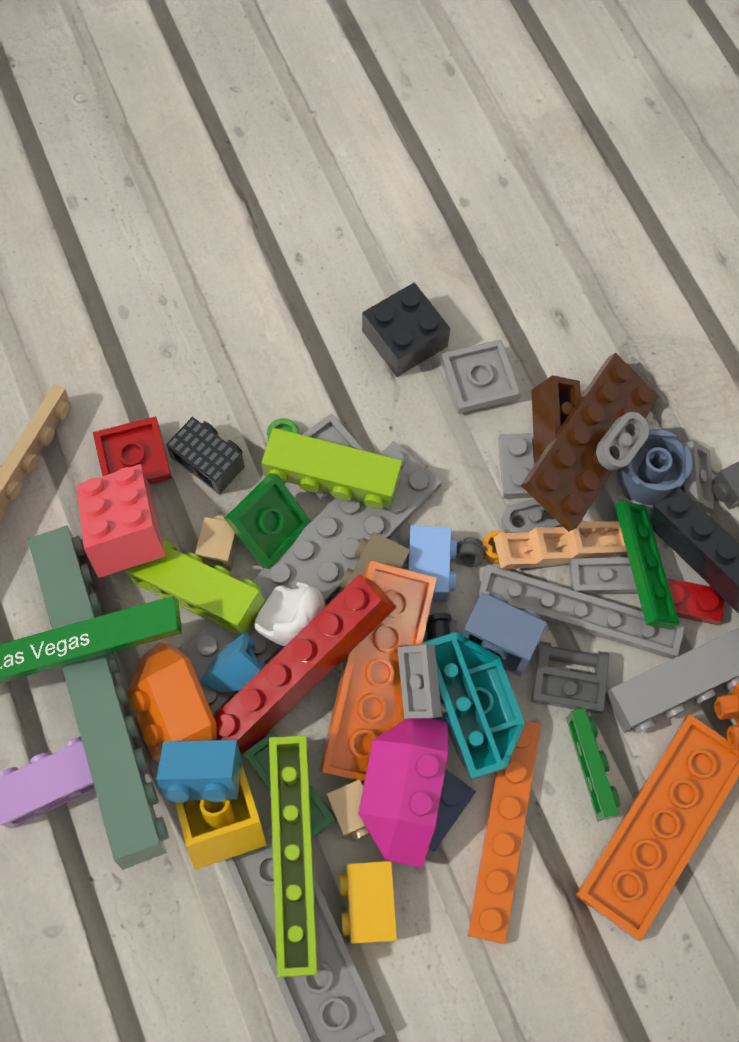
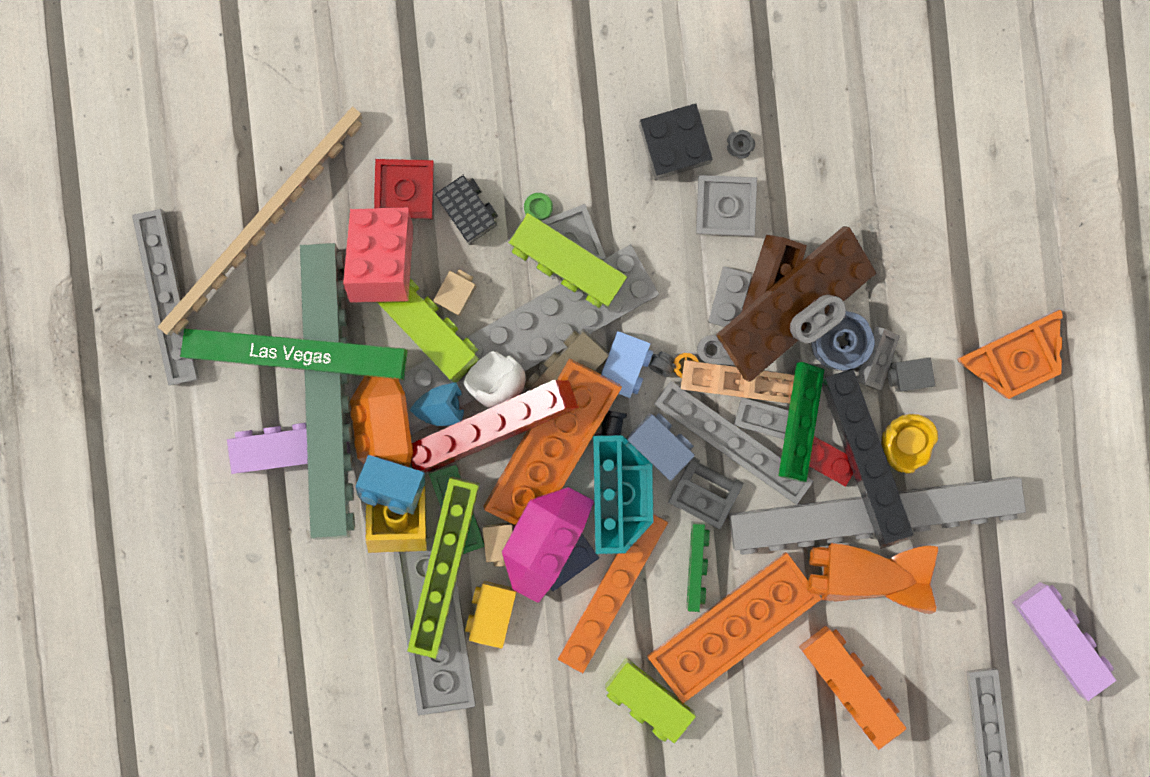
camera: 15 degrees right, 20 degrees up
(268, 520) = (501, 289): green plate -> none
(419, 681) = (580, 467): light grey plate -> none
(472, 309) = (740, 136): none -> dark grey plate
(600, 952) = (649, 701): none -> lime brick

